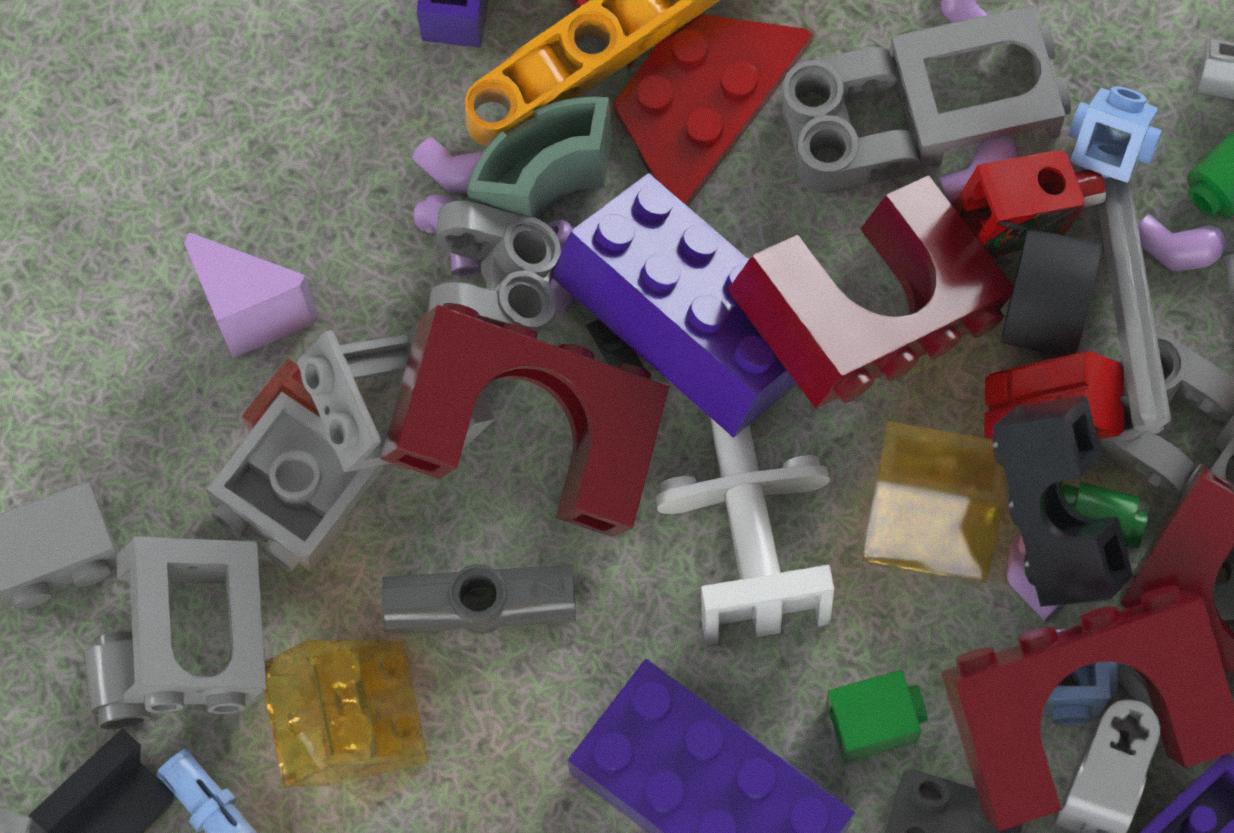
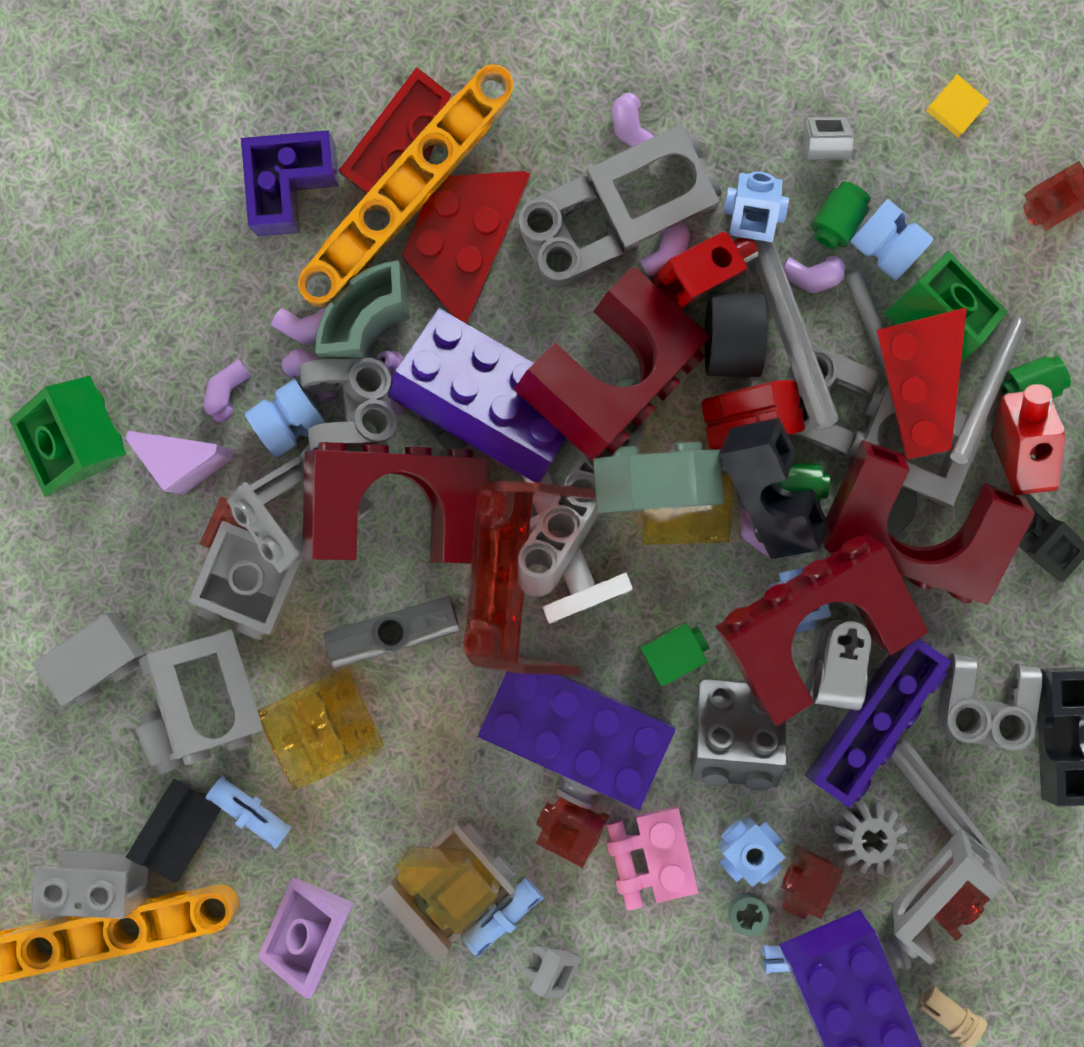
camera: 15 degrees left, 15 degrees up
(97, 239) = (67, 434): none -> green slope
(321, 224) = (220, 388): none -> lavender arm
(399, 278) = (285, 418): none -> light blue wheel
(655, 520) = (494, 590): none -> clear red windscreen
(777, 475) = (567, 515): none -> light grey beam
(933, 451) = (658, 480): none -> sand green brick

